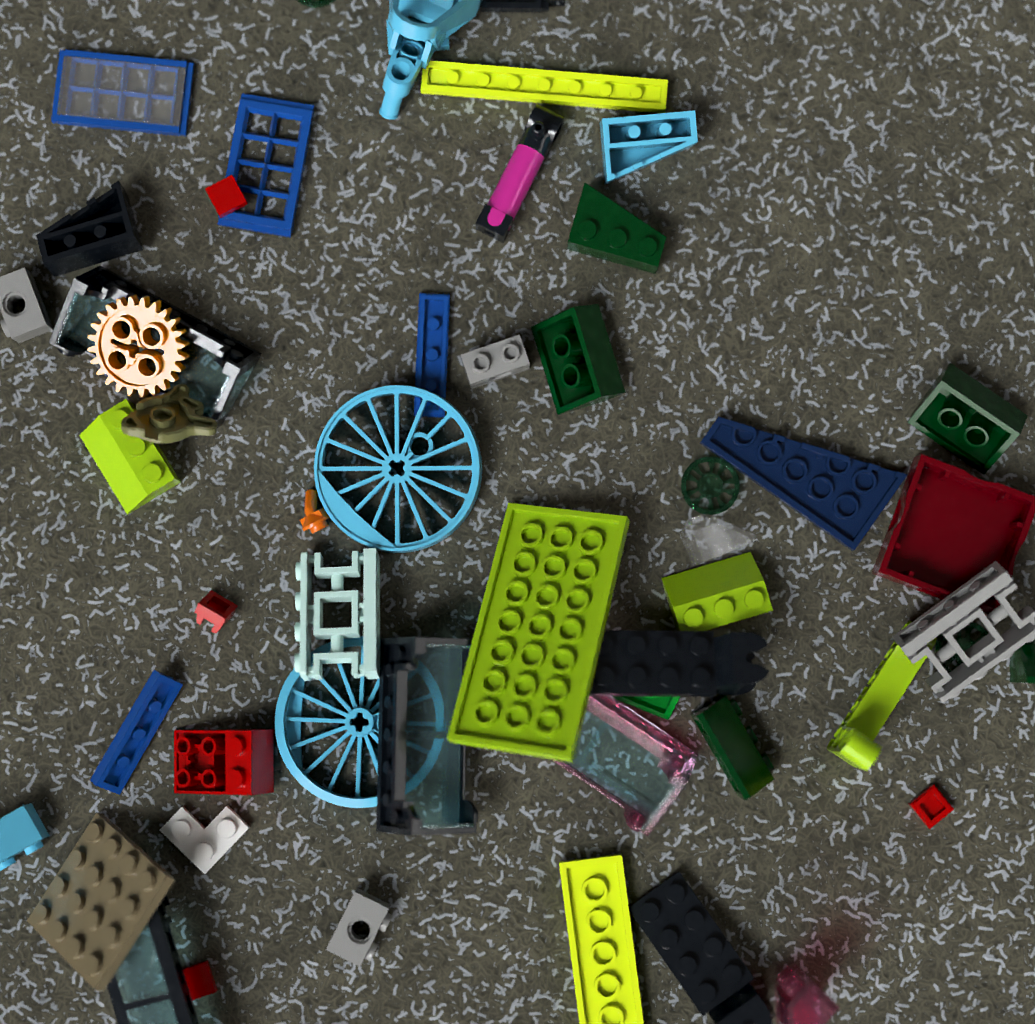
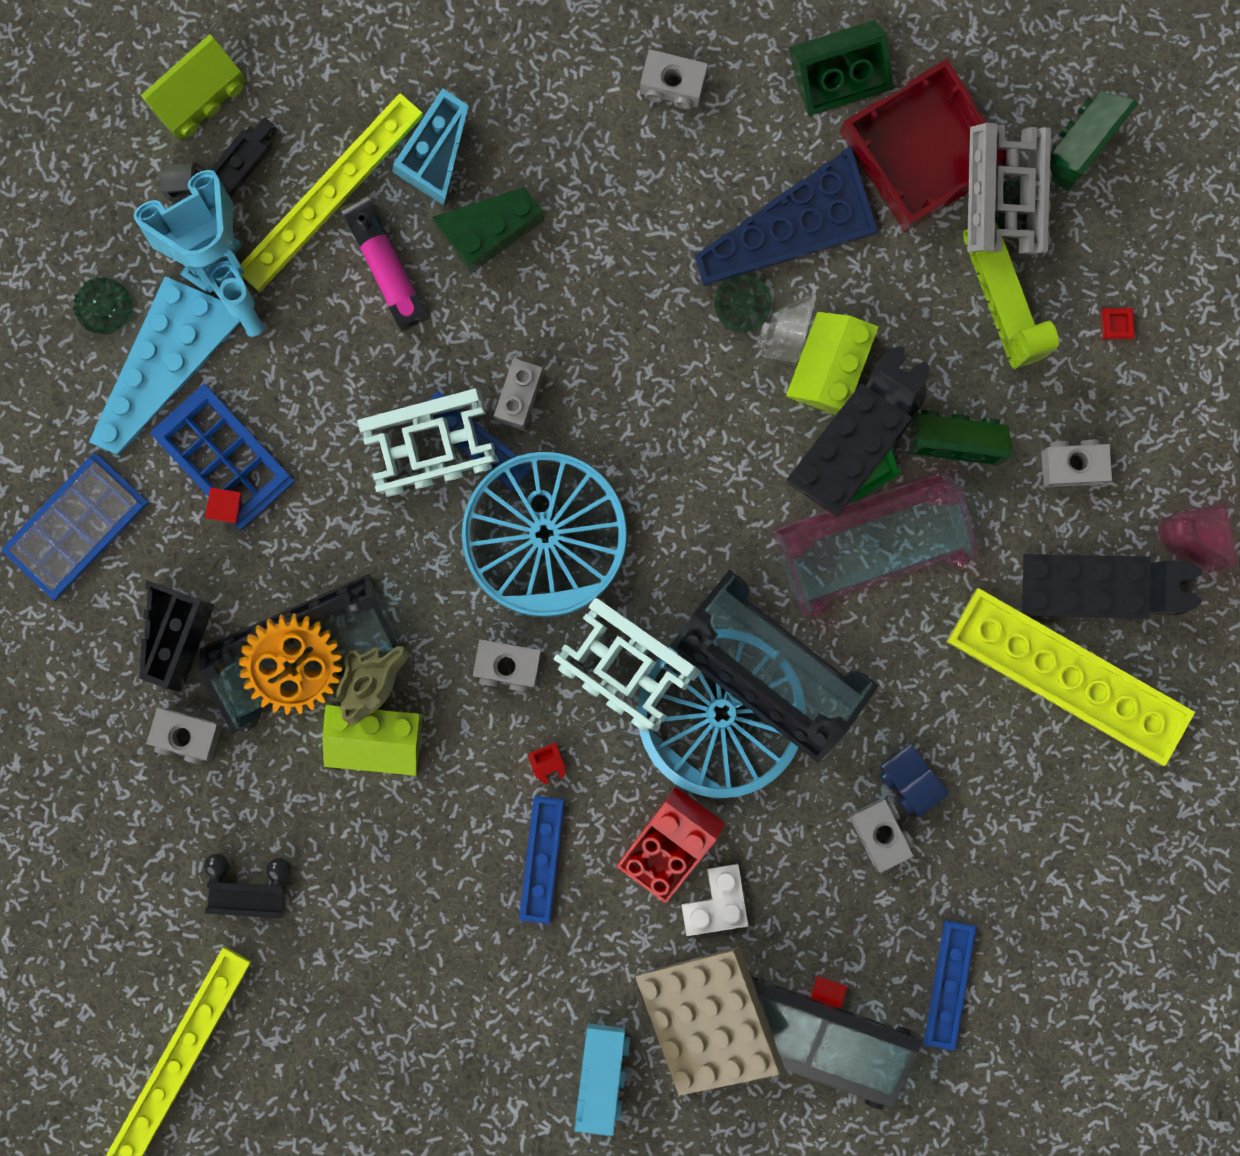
camera: 50 degrees left, 0 degrees up
(134, 666) = (542, 859): none -> blue tile
(136, 732) = (596, 896): blue plate -> none
(283, 532) = (488, 659): none -> light grey brick
(314, 519) = (534, 629): orange plate -> none
(321, 57) = (170, 348): none -> medium azure wing
(415, 300) = (422, 419): none -> light aqua fence
(422, 920) = (913, 781): none -> dark blue brick
(539, 632) = (760, 516): lime plate -> none
(578, 358) = (565, 329): dark green slope -> none
(800, 873) = (1094, 458): none -> light grey brick
(850, 271) = (662, 66): none -> light grey brick

